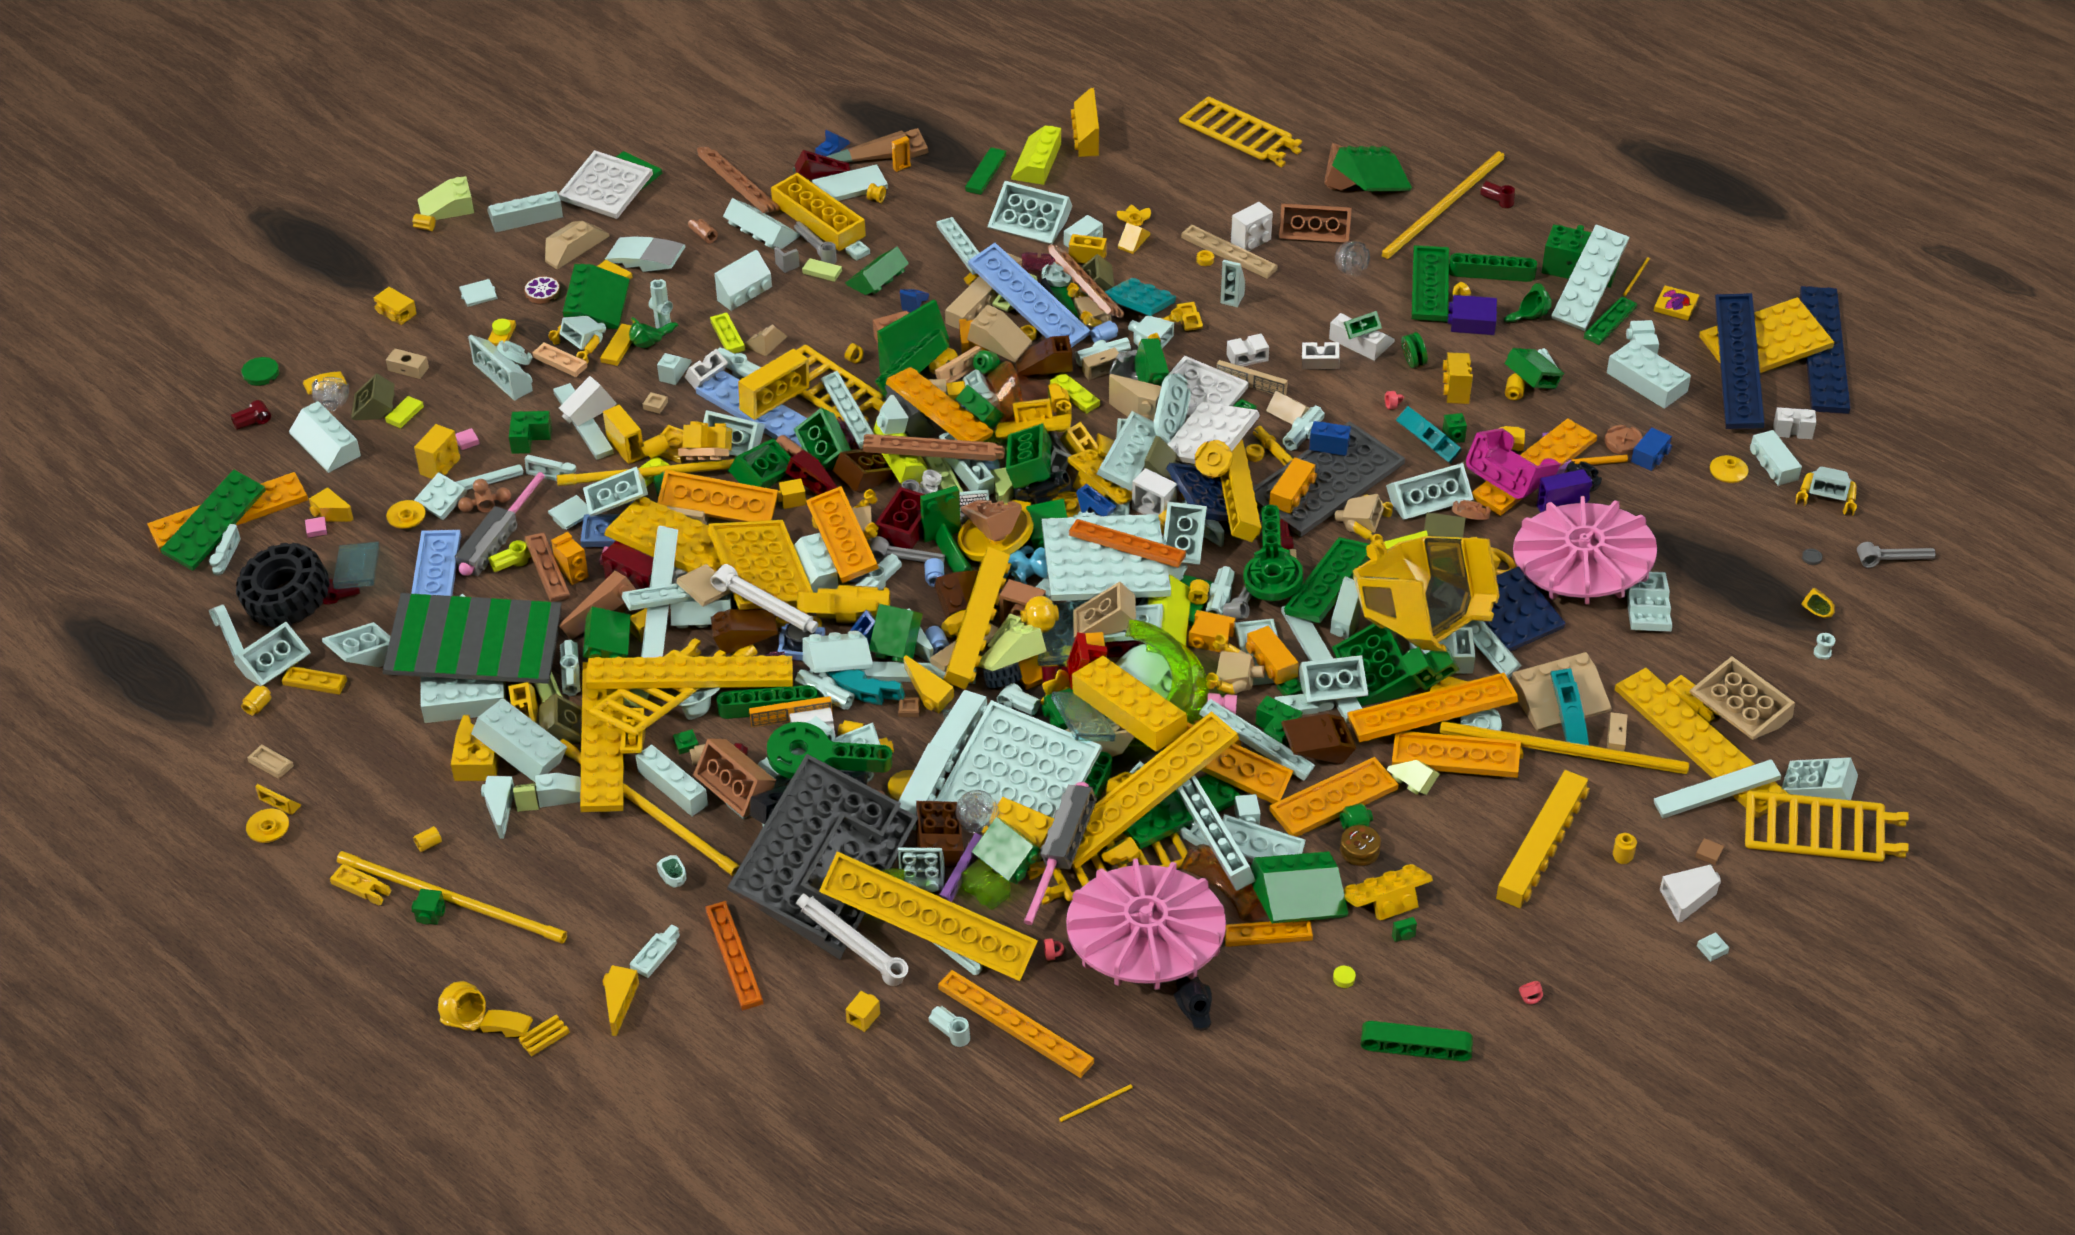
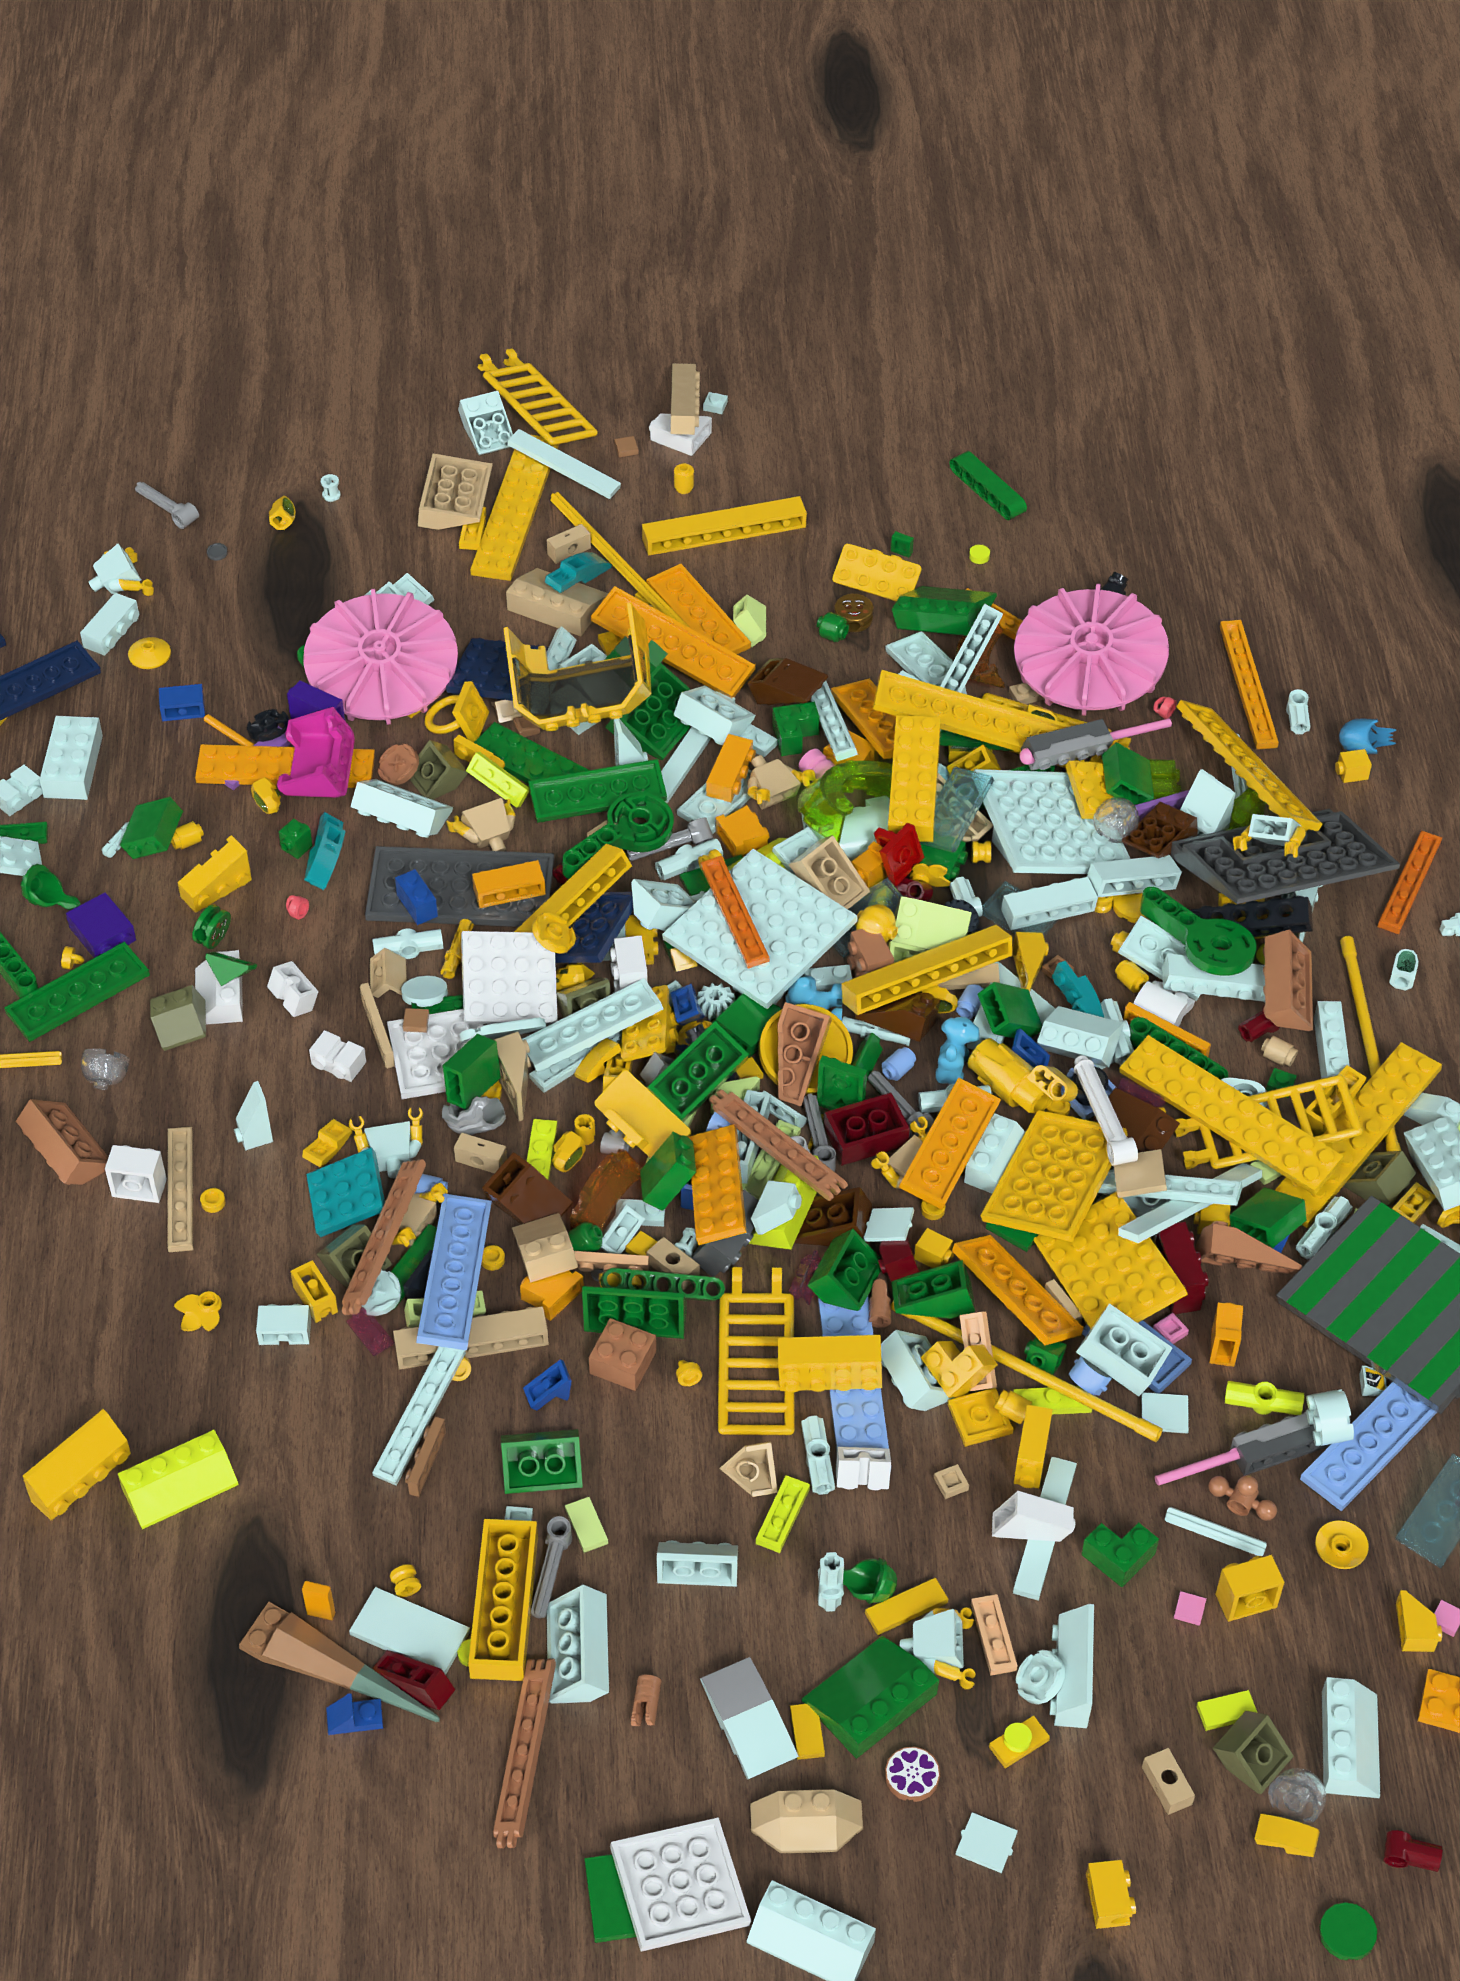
camera: 135 degrees left, 5 degrees up
(441, 496) = (1285, 1539): light aqua plate -> none
(460, 539) = (1330, 1416): none -> light aqua brick
(547, 467) = (1140, 1479): light aqua hinge -> none
(547, 567) = (1253, 1351): nougat tile -> none
(672, 368) = (884, 1514): light aqua slope -> none
(786, 261) = (609, 1565): light grey panel -> none
(826, 473) = (889, 1224): none -> light aqua piece
(834, 836) = (1272, 831): none -> light aqua torso
(847, 407) = (779, 1293): light aqua tile -> none
(854, 940) = (1304, 775): white piece -> none
(879, 1031) = (1359, 735): none -> dark azure helmet
(906, 589) = (953, 1051): none -> medium azure animal
(935, 237) = (425, 1456): none -> medium nougat plate
(985, 171) = (250, 1515): green tile -> none
(1030, 212) = (295, 1400): light aqua slope -> none
(1095, 1103) = (1245, 607): yellow axle -> none
(1121, 345) = (458, 1166): light aqua piece -> none
(1132, 238) = (240, 1281): yellow slope -> none
(1231, 389) = (416, 1020): none -> medium nougat tile
(1258, 403) = (424, 990): none -> light aqua tile
(1329, 797) = (826, 654): light orange plate -> none
(1356, 302) = (179, 1017): none -> slope
(1530, 989) = (871, 458): coral tile -> none
(1622, 439) = (181, 733): nougat tile -> none
(1721, 901) = (685, 399): none -> tan brick
(1794, 422) = (46, 632): white brick -> none

